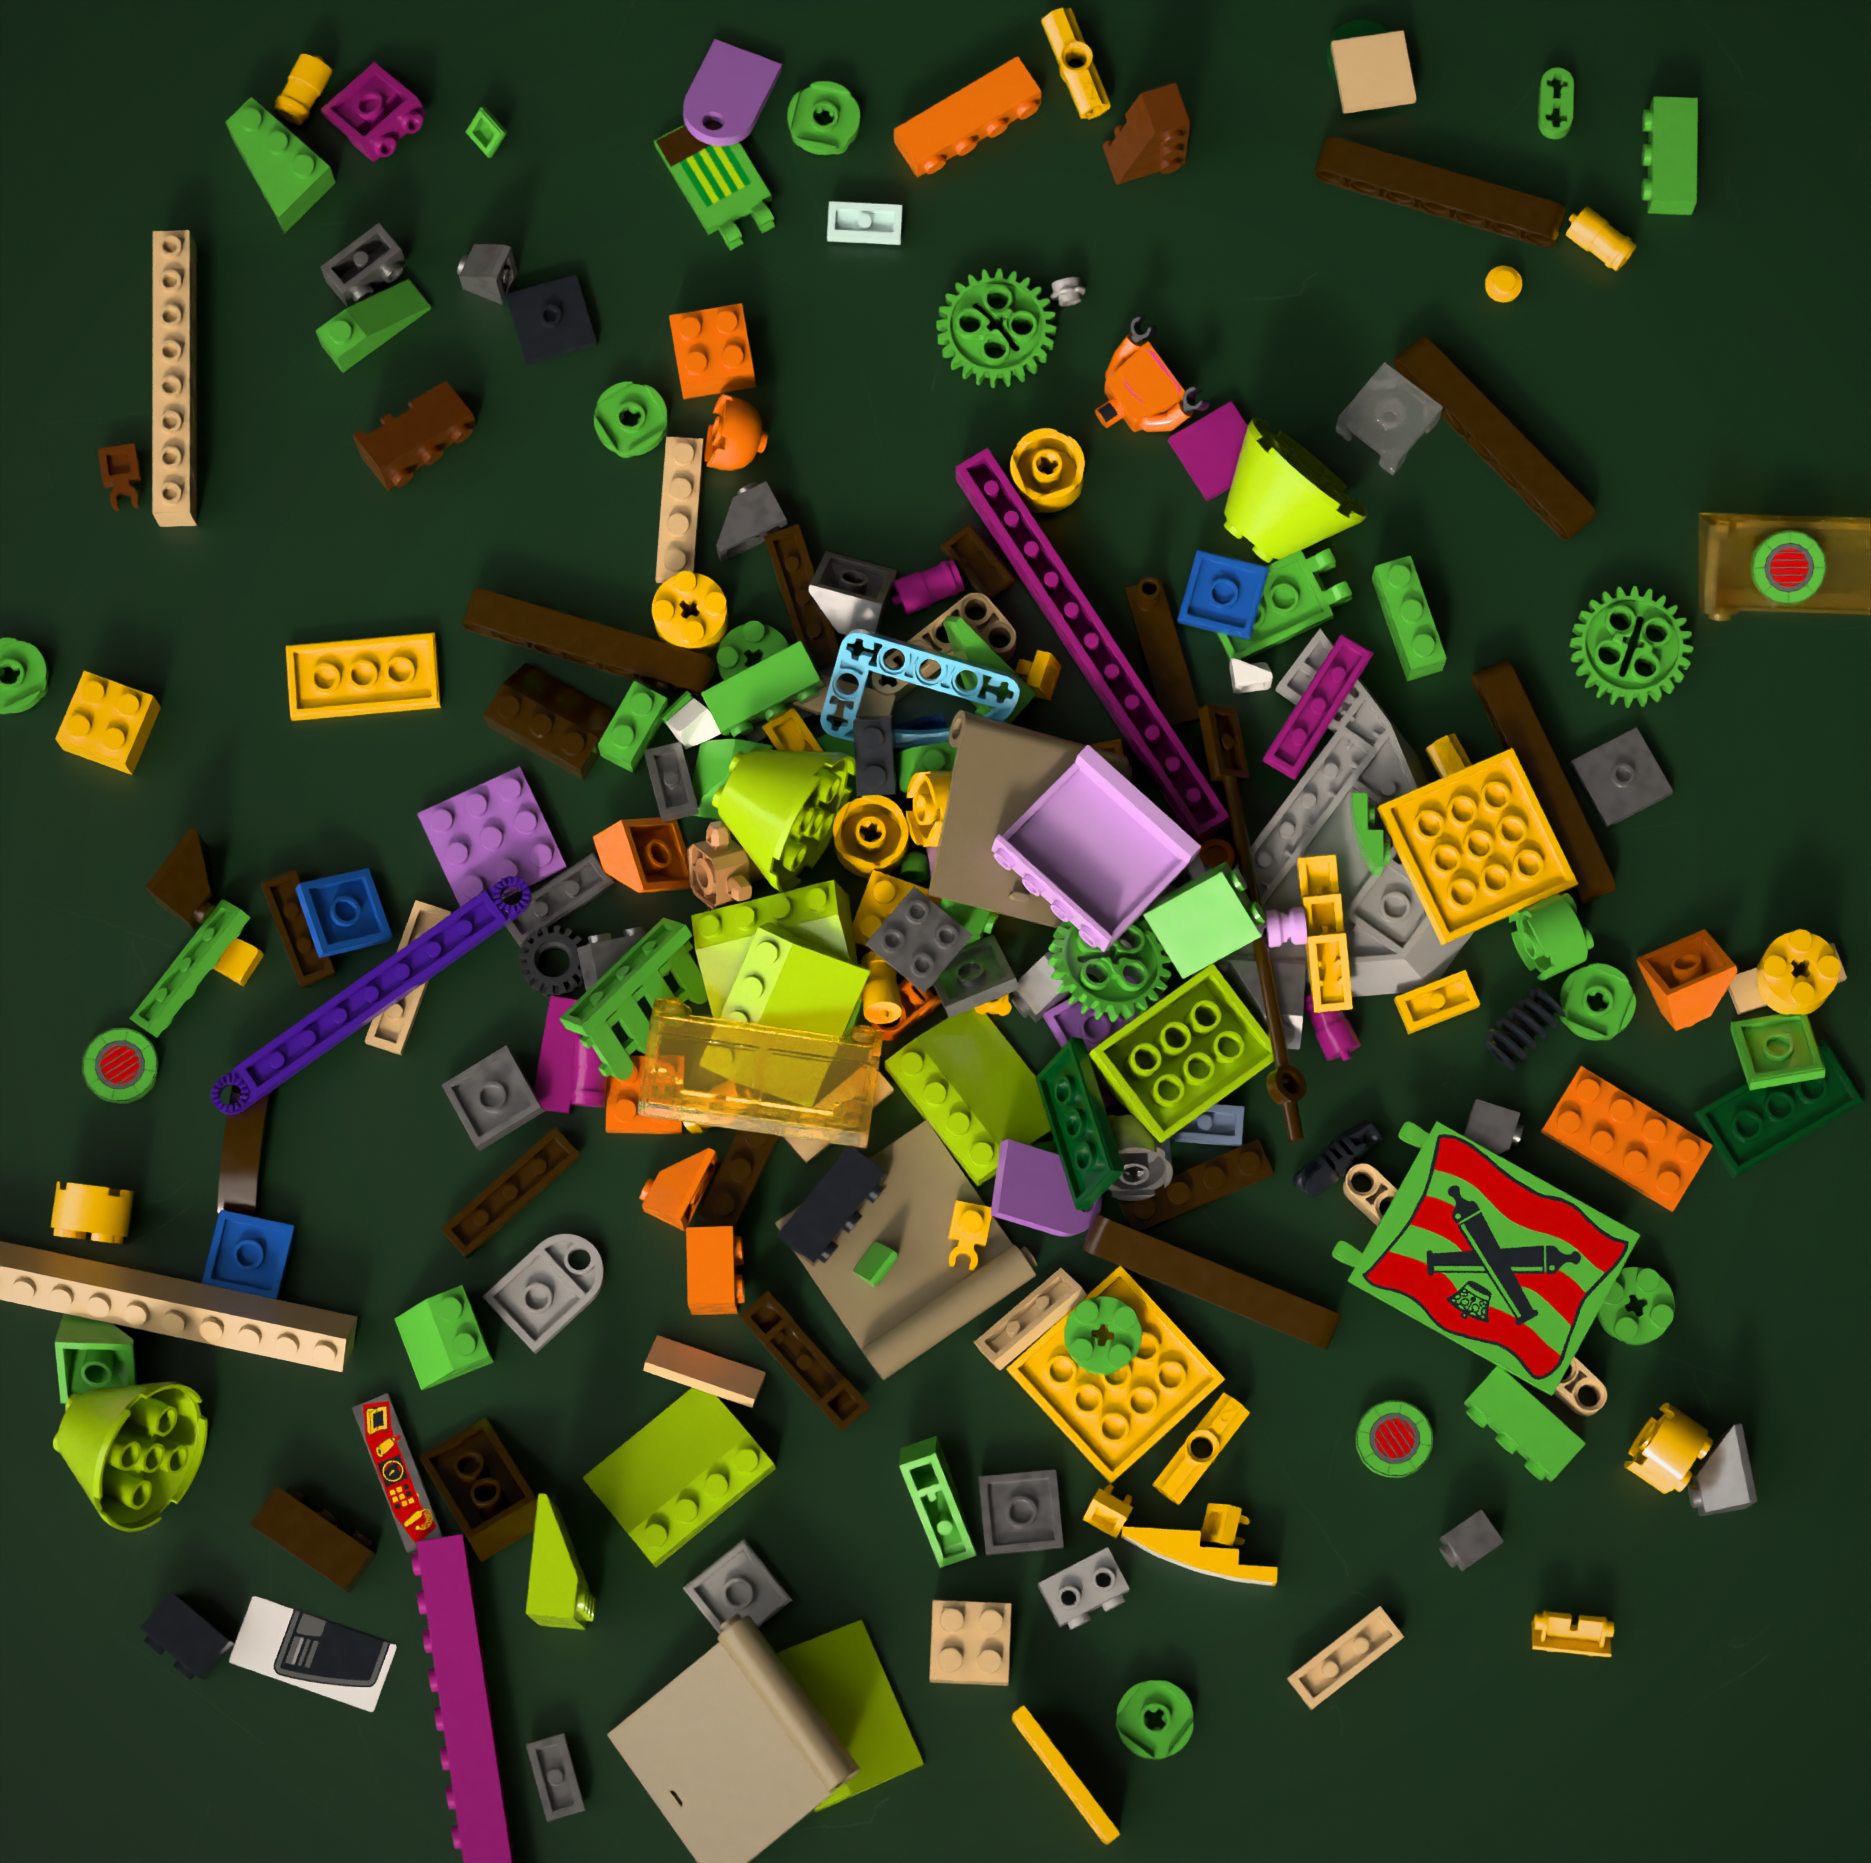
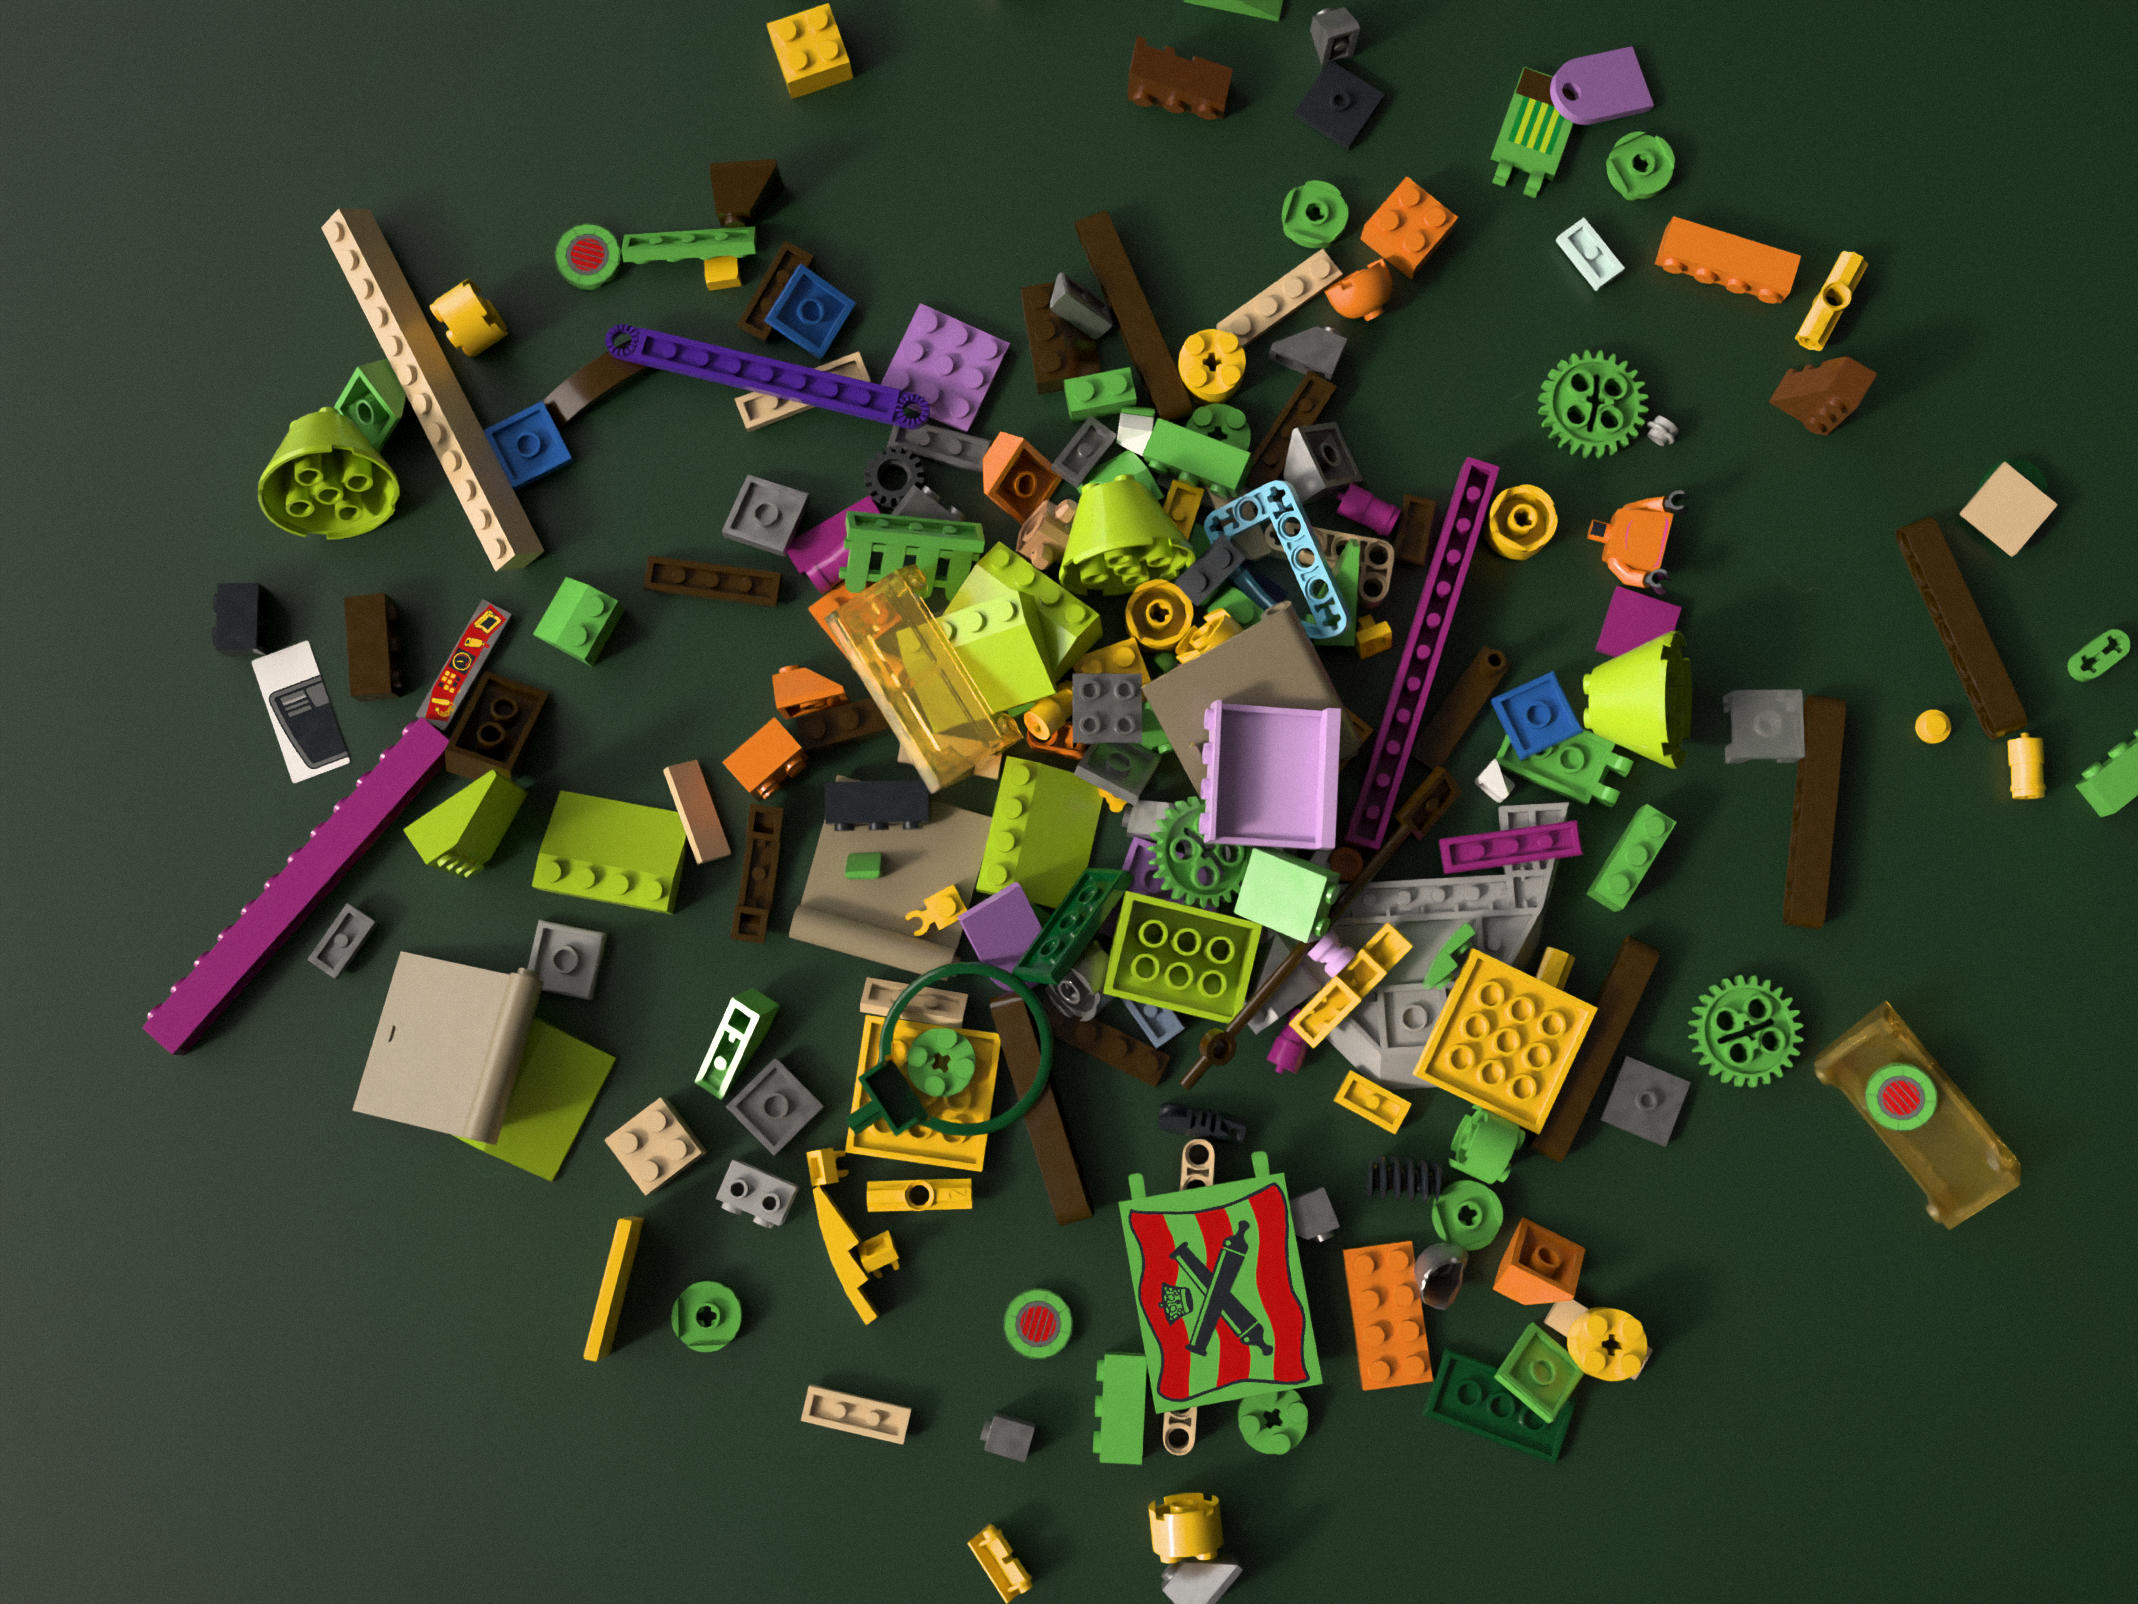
camera: 50 degrees right, 5 degrees up
(363, 676) = (985, 190): yellow tile -> none
(543, 679) = (1080, 307): none -> flat silver slope
(545, 1291) = (667, 661): light grey tile -> none
(1100, 1397) = (893, 1096): none -> dark green brick
(1627, 1063) = (1440, 1273): none -> flat silver hair

